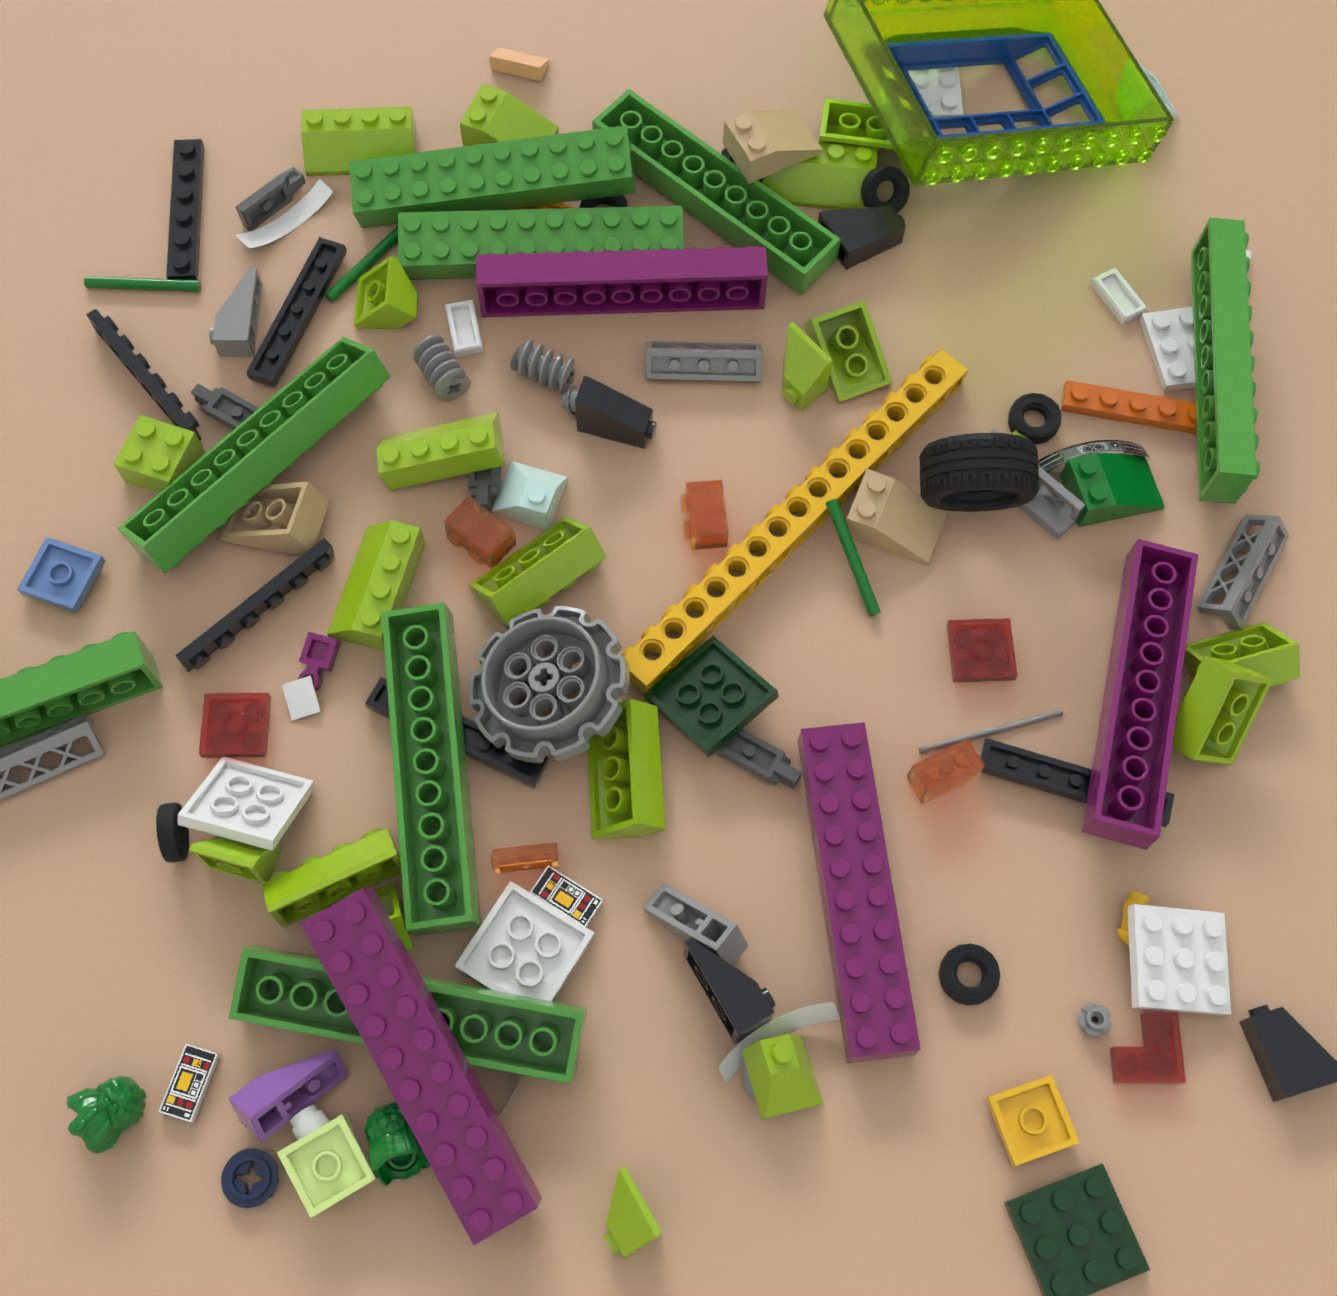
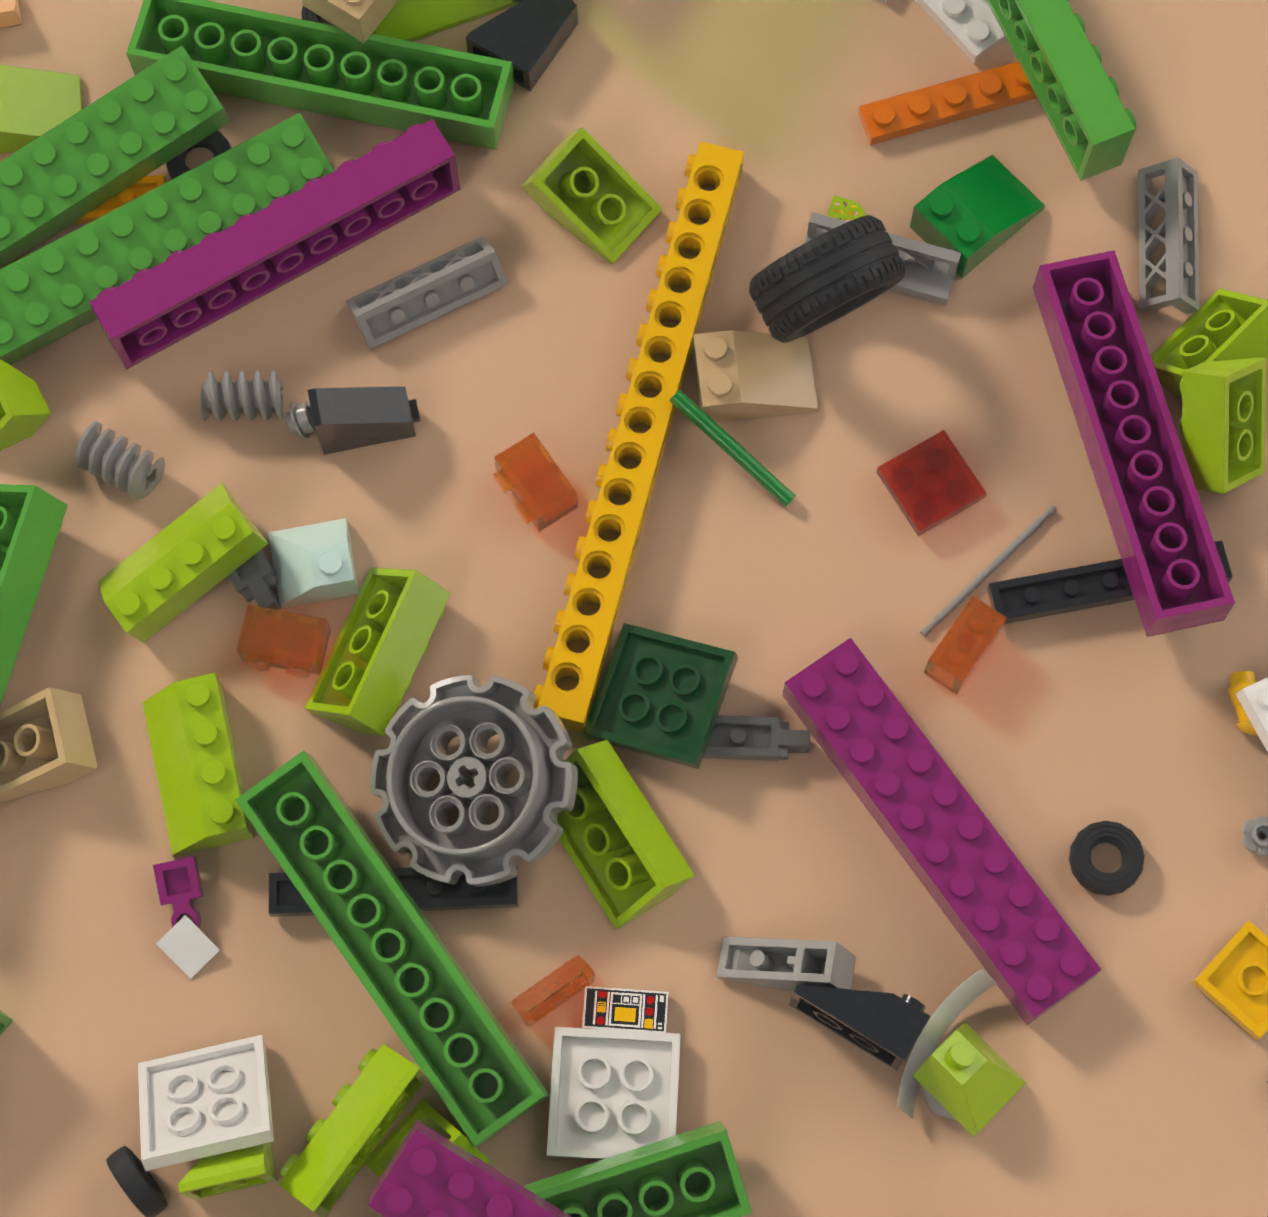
camera: 25 degrees left, 5 degrees up
(235, 725) = (130, 1019): clear red plate -> none
(248, 612) = (65, 881): black plate -> none
(464, 328) = (114, 395): white tile -> none
(804, 369) = (553, 246): lime slope -> none
(1041, 403) = (852, 150): black tyre -> none
(1061, 456) = (930, 178): sticker -> none

